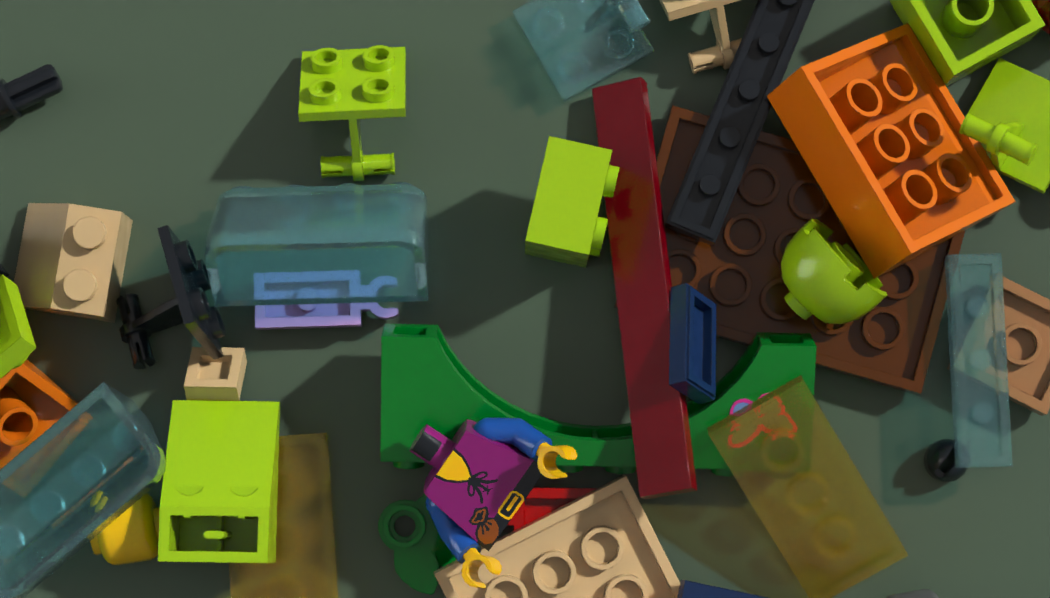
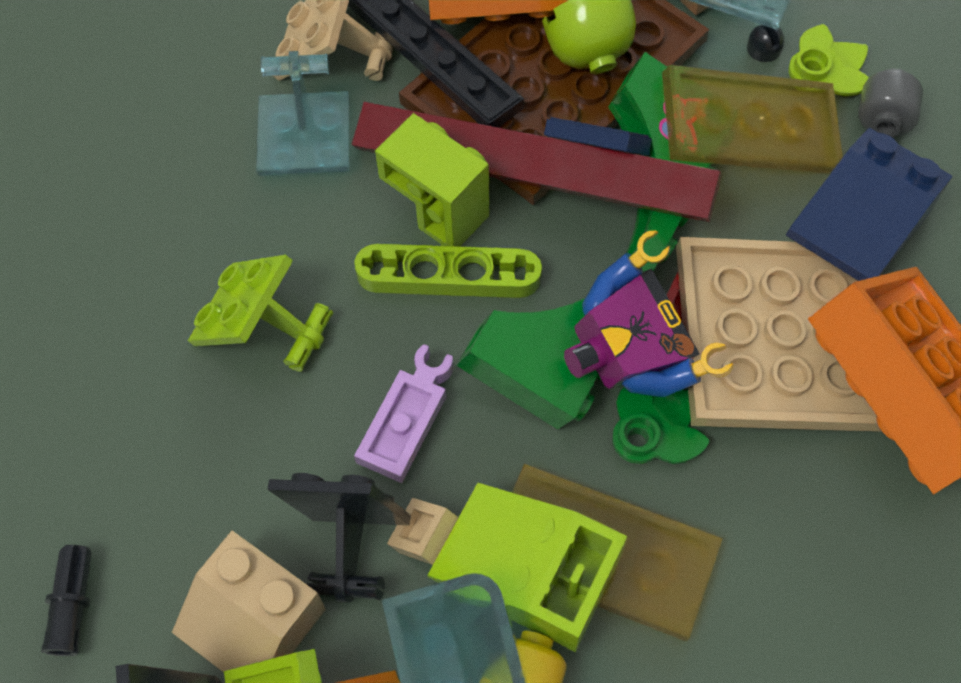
camera: 60 degrees left, 20 degrees down
(318, 245) = (361, 379): clear light blue windscreen -> none
(501, 258) = (447, 278): none -> lime beam
(957, 543) = (829, 61): none -> lime plate

